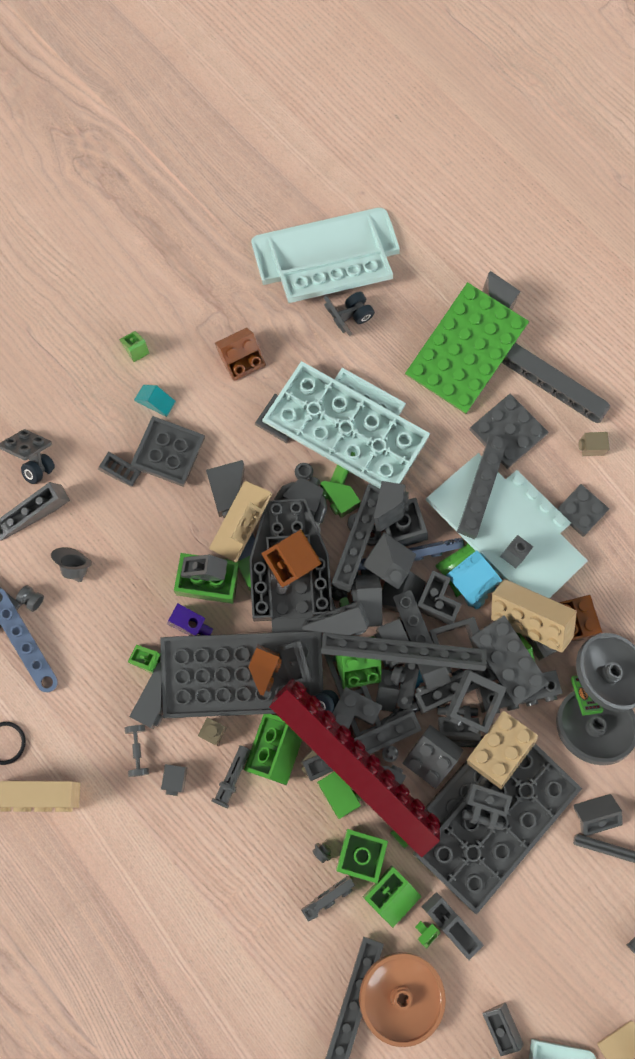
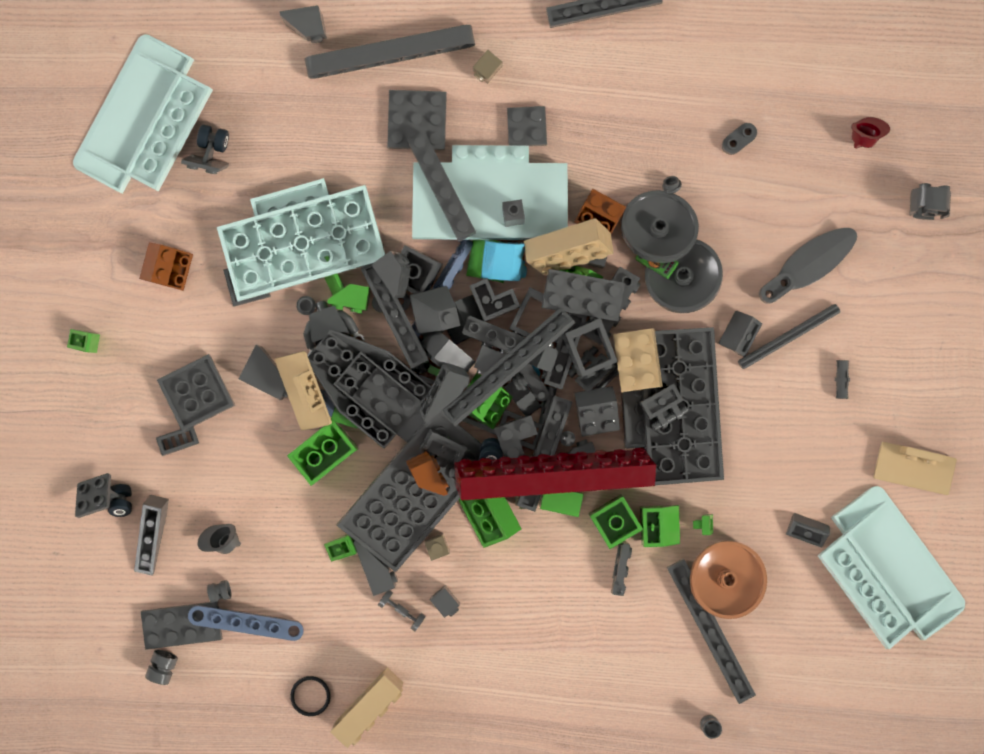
camera: 45 degrees left, 15 degrees up
(155, 399) = (144, 364): teal slope -> none
(180, 618) = (335, 498): dark purple torso -> none
(204, 568) = (315, 450): dark grey slope -> none
(227, 786) = (484, 569): dark grey pin -> none
(291, 558) = (367, 383): dark orange slope -> none
(322, 852) = (588, 545): dark grey plate -> none
(452, 926) = (715, 502): dark grey slope -> none
(466, 348) = (323, 88): bright green plate -> none

